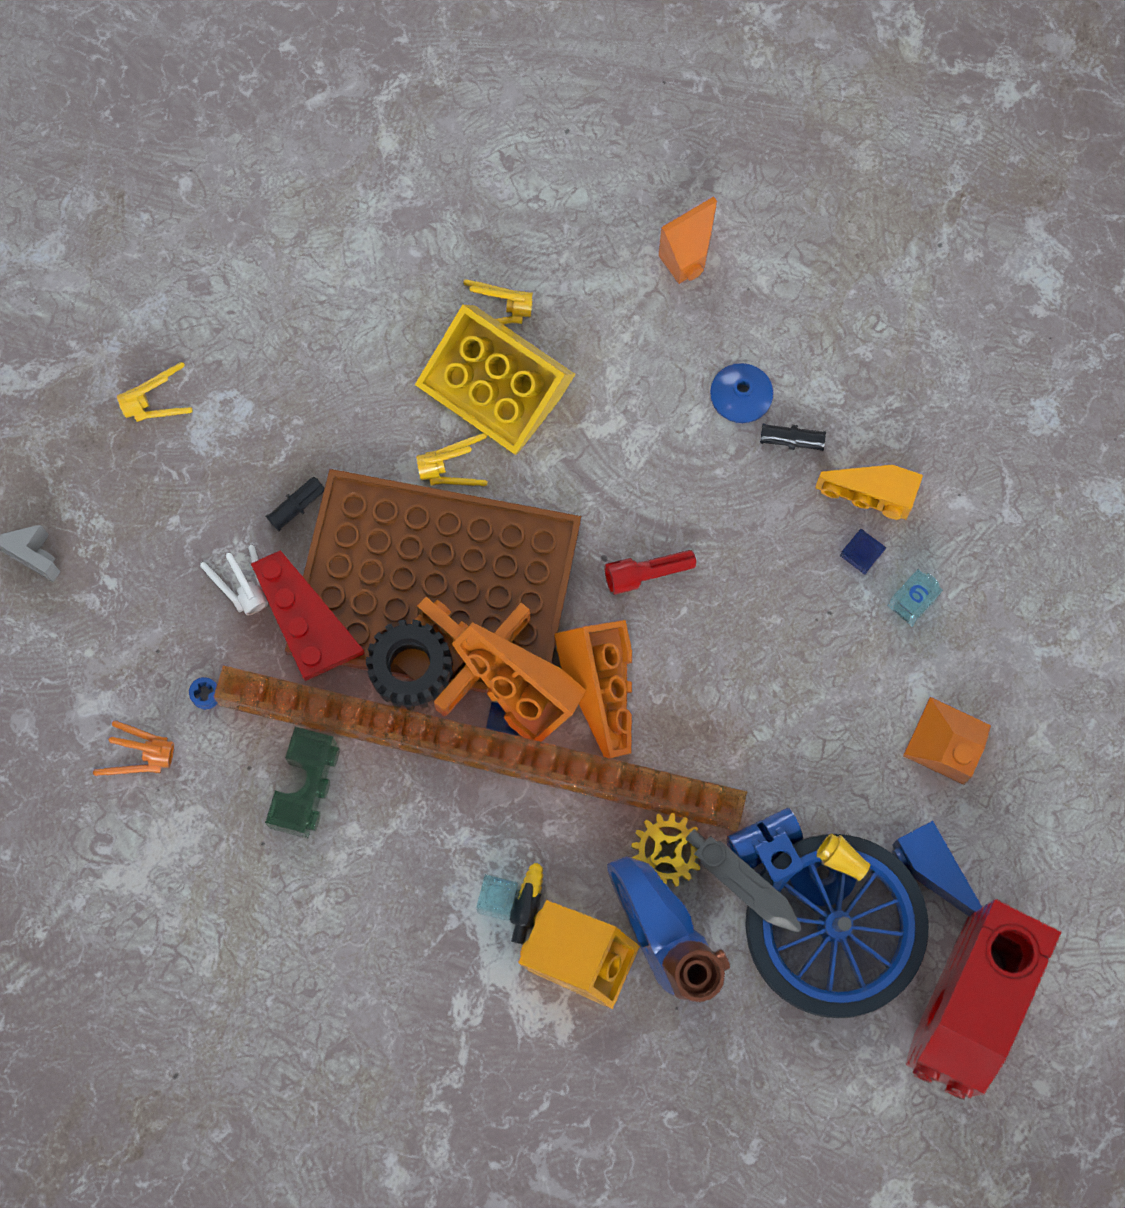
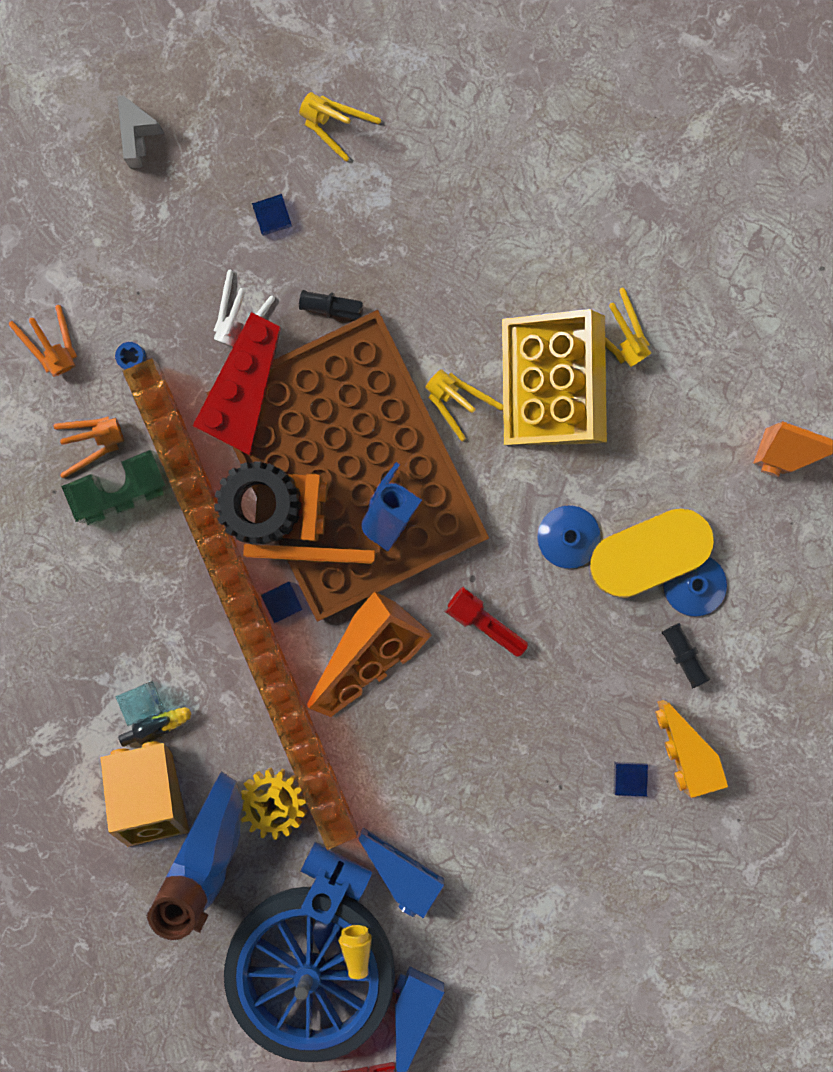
camera: 55 degrees right, 15 degrees up
(185, 497) = (272, 214): none -> clear blue tile
(247, 759) = (105, 432): none -> orange plant
(499, 568) = (389, 511): none -> blue piece
(526, 686) = (311, 614): orange wedge -> none
(627, 473) = (552, 536): none -> blue dish
(690, 405) = (651, 553): none -> yellow tile
(744, 881) = (285, 885): dark grey piece -> none
(810, 788) = (406, 879): none -> blue slope
(915, 597) = (622, 849): clear light blue brick -> none
(948, 741) = (523, 956): orange slope -> none

